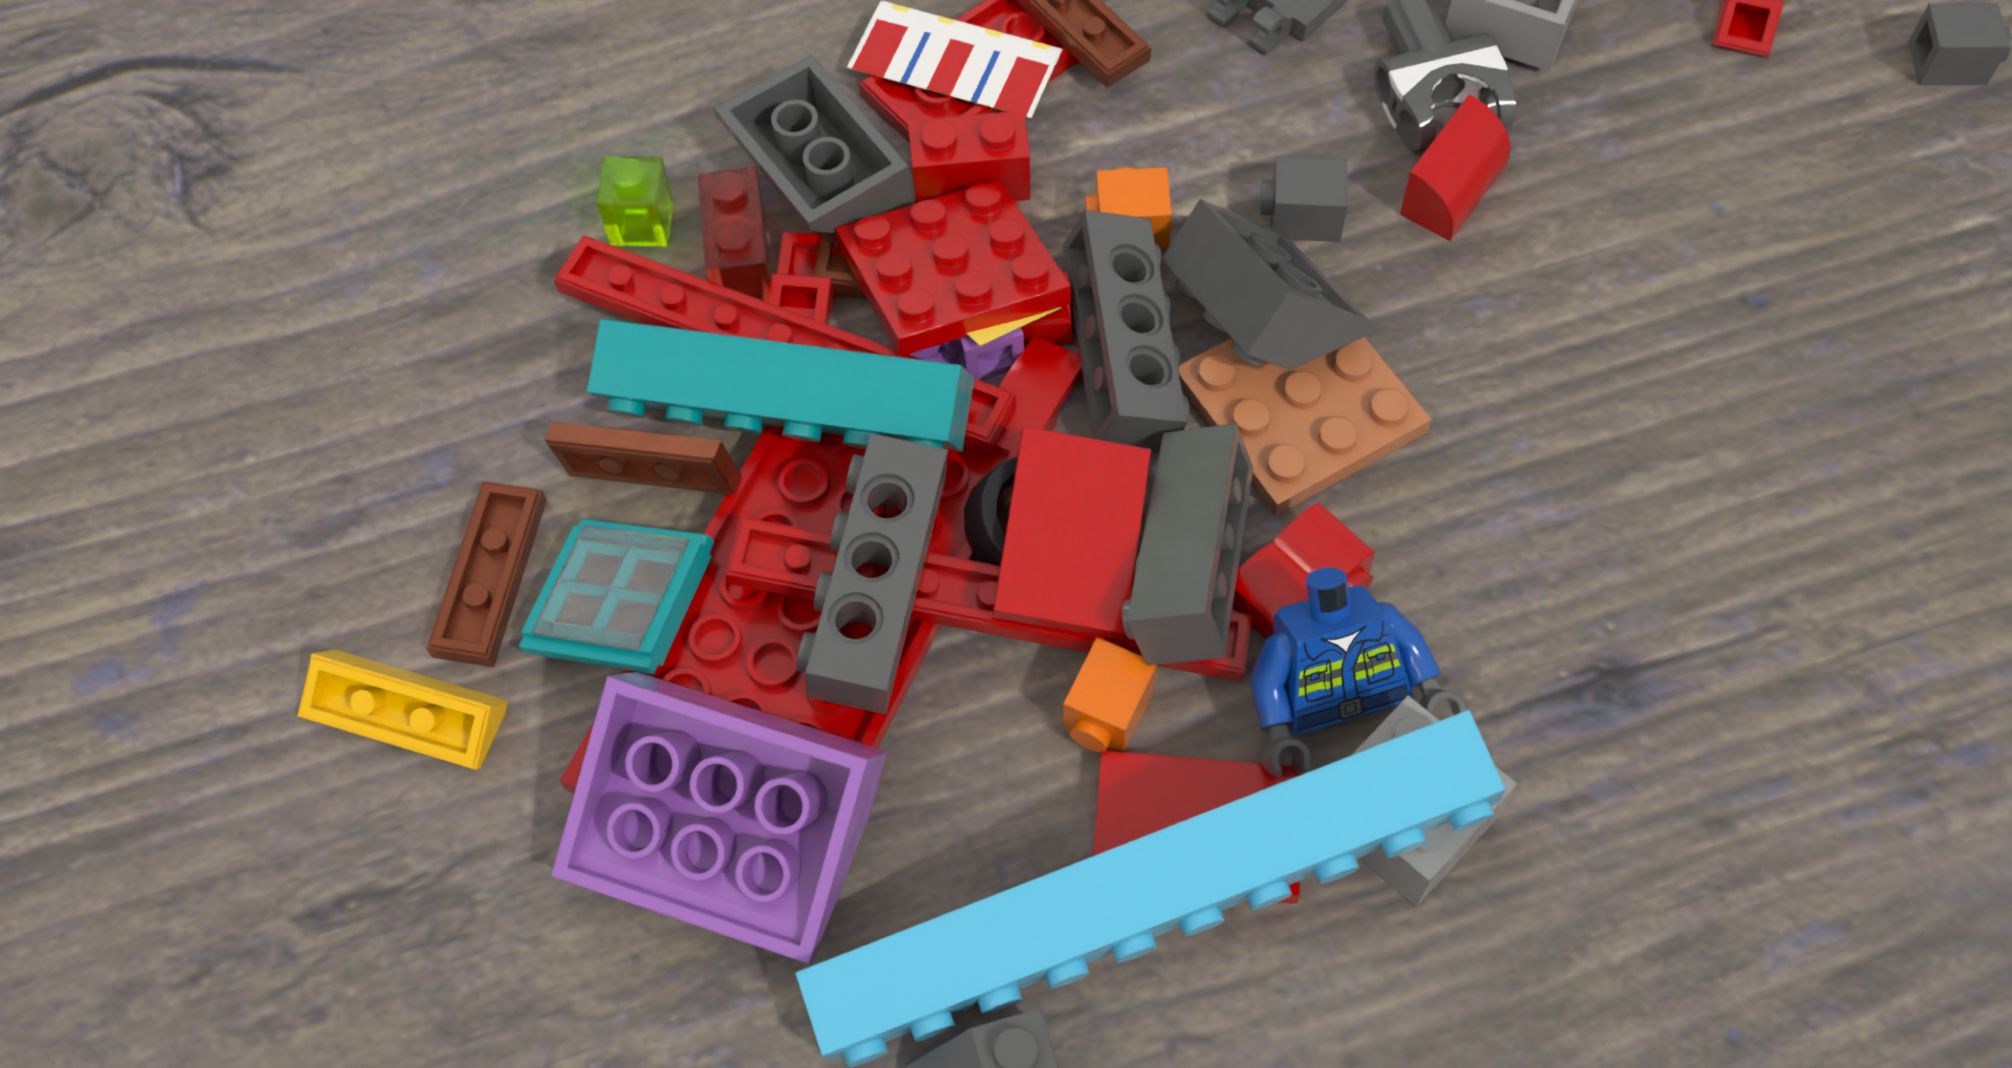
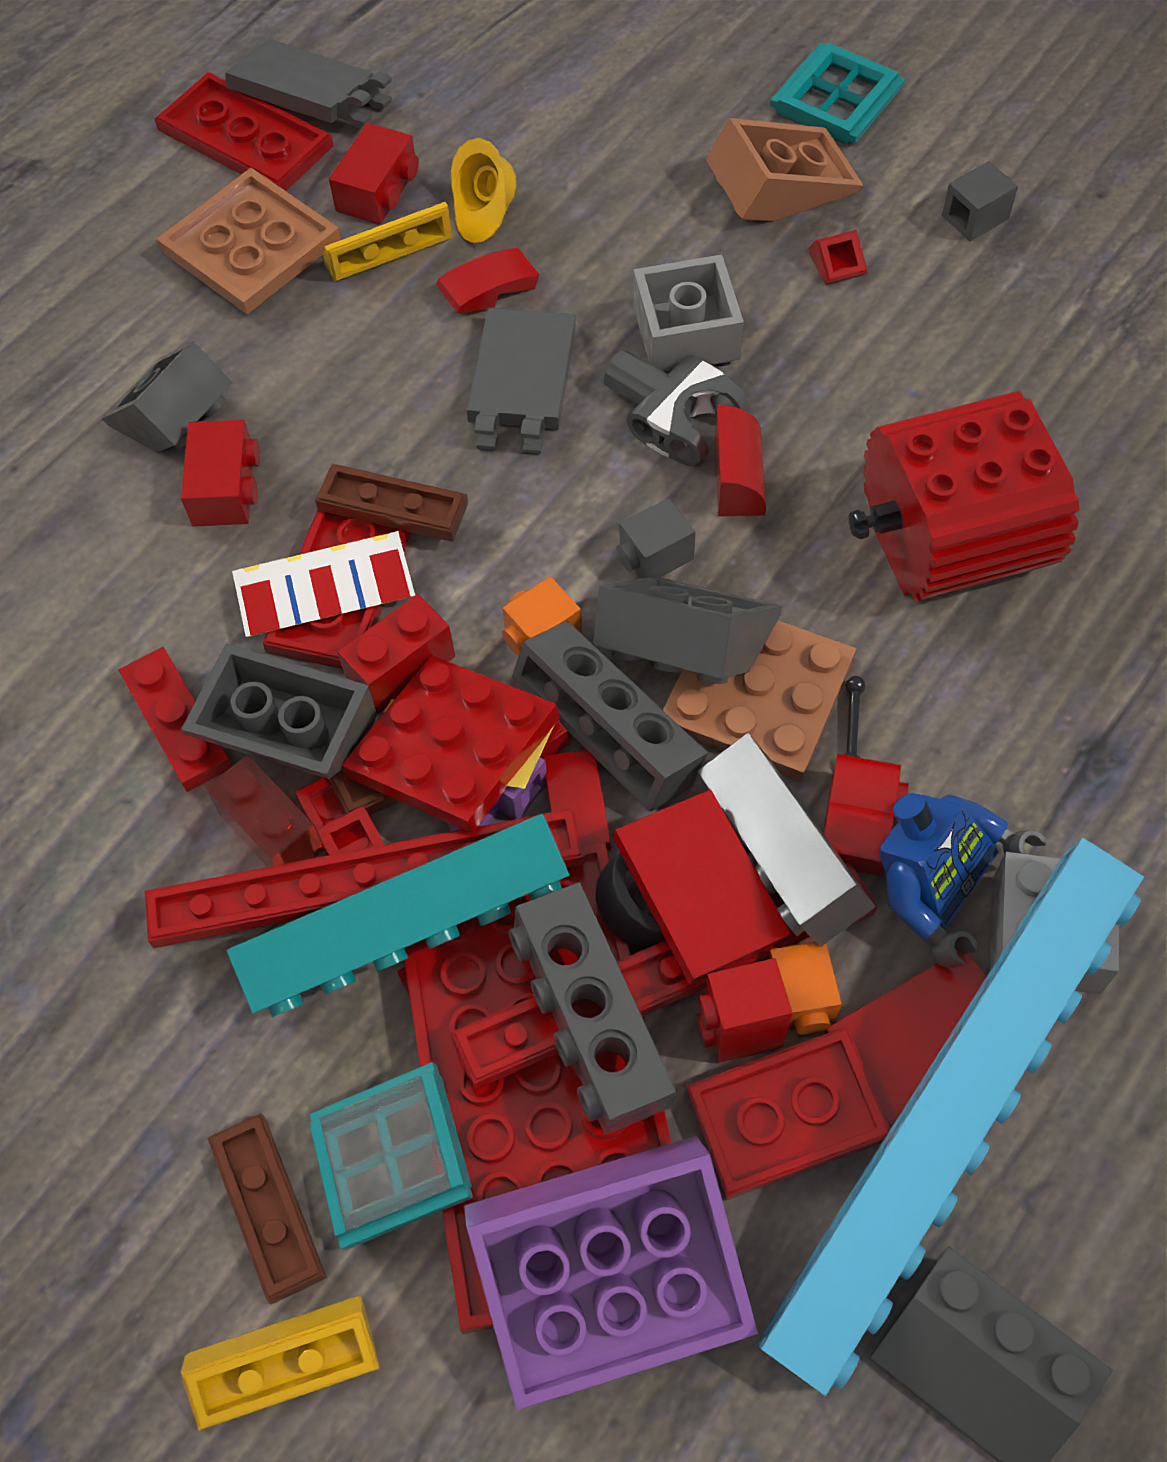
camera: 35 degrees left, 0 degrees up
(635, 200) = (161, 838): clear neon green brick -> none
(644, 458) = (330, 1036): copper tile -> none
(733, 67) = (166, 706): none -> red plate
(1001, 798) = (788, 1112): none -> red tile
(1023, 674) = (744, 1011): none -> red brick
(1402, 458) = (855, 686): none -> black hinge
(1660, 326) = (967, 496): none -> red piece

